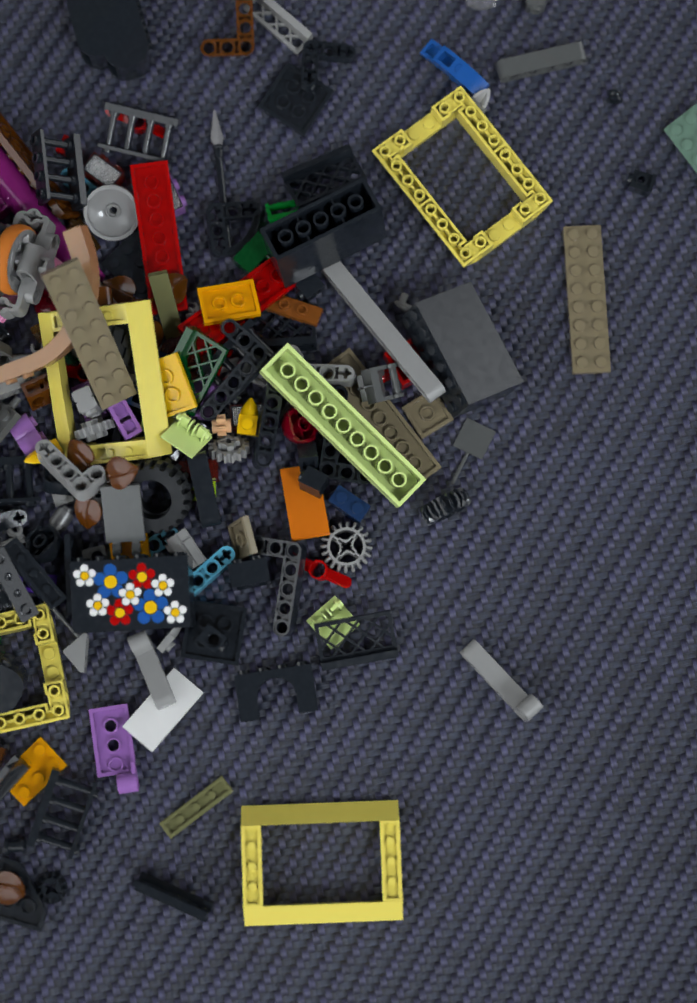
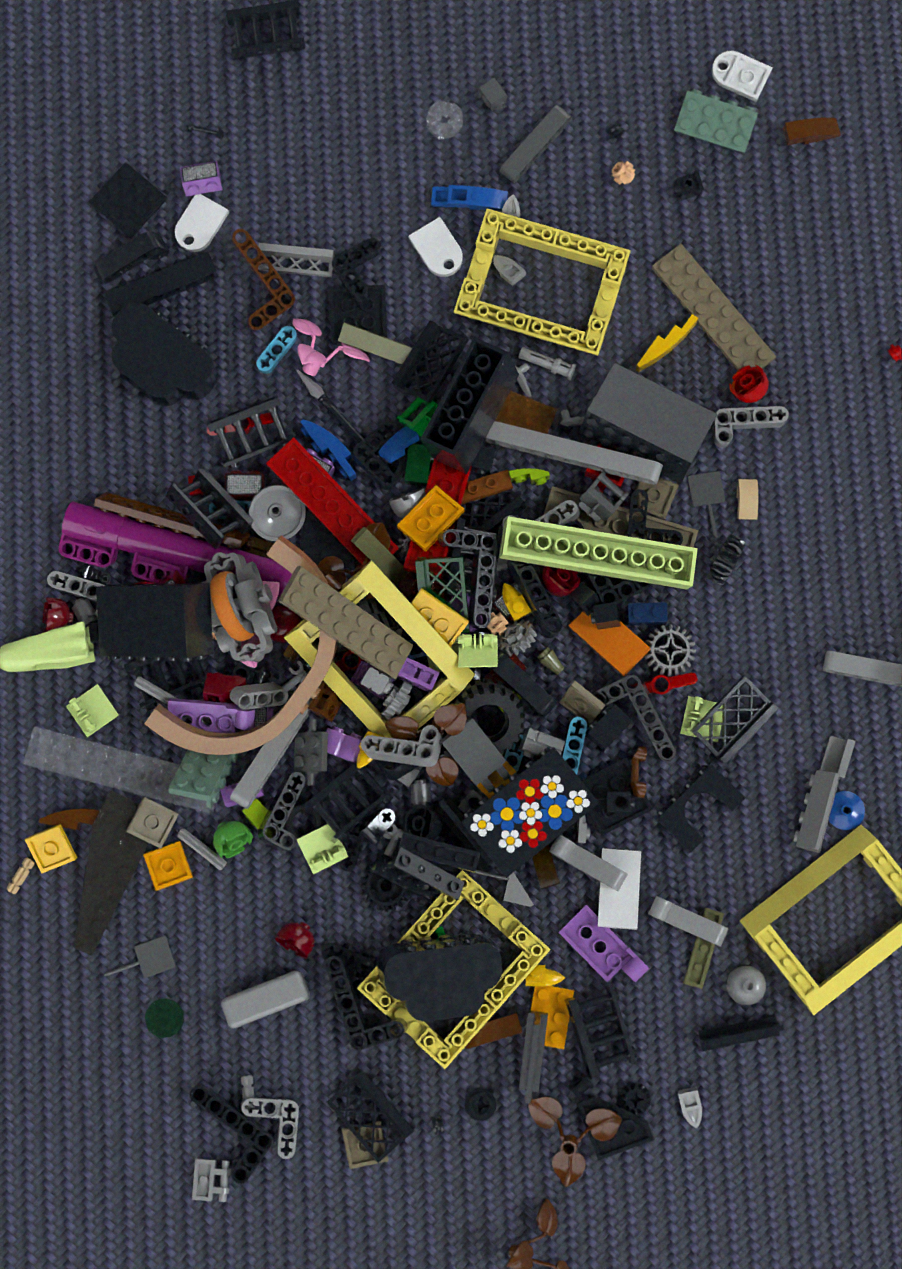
camera: 25 degrees left, 0 degrees up
(50, 736) = (543, 977): none -> yellow plate
(91, 926) = (691, 1105): none -> light grey plate
(116, 650) = (546, 868): none -> dark brown slope
(193, 185) = (327, 442): none -> blue slope
(197, 774) = (688, 921): none -> light grey beam
(206, 90) = (264, 357): none -> medium azure beam
(208, 862) = (746, 985): none -> light grey cylinder
(218, 276) = (406, 502): none -> light grey cylinder
(231, 111) = (314, 360): none -> bright pink plant
(236, 638) = (638, 788): none -> reddish brown bar
(244, 487) = (550, 660): none -> olive cone
(245, 225) = (396, 445): none -> blue slope
(290, 131) = (374, 343): none -> olive tile
(342, 330) = (535, 475): none -> lime slope
(370, 763) = (818, 810): none -> light grey slope
(371, 274) = (526, 413): none -> clear orange tile
(384, 783) = (853, 818): none -> blue dish
(389, 243) = (522, 380): none -> light grey bar
(396, 430) = (641, 526): none -> black beam
(400, 90) = (436, 247): none -> white tile
(418, 731) = (837, 756): none -> light grey panel
(424, 252) = (555, 365): none -> light grey pin
(444, 148) = (508, 269): none -> light grey plate
(500, 470) = (747, 499): none -> tan slope
(521, 298) = (662, 347): none -> yellow slope
(549, 409) = (750, 423): none -> light grey beam
(570, 378) = (749, 384): none -> red cylinder
(595, 134) = (623, 172): none -> light nougat gear

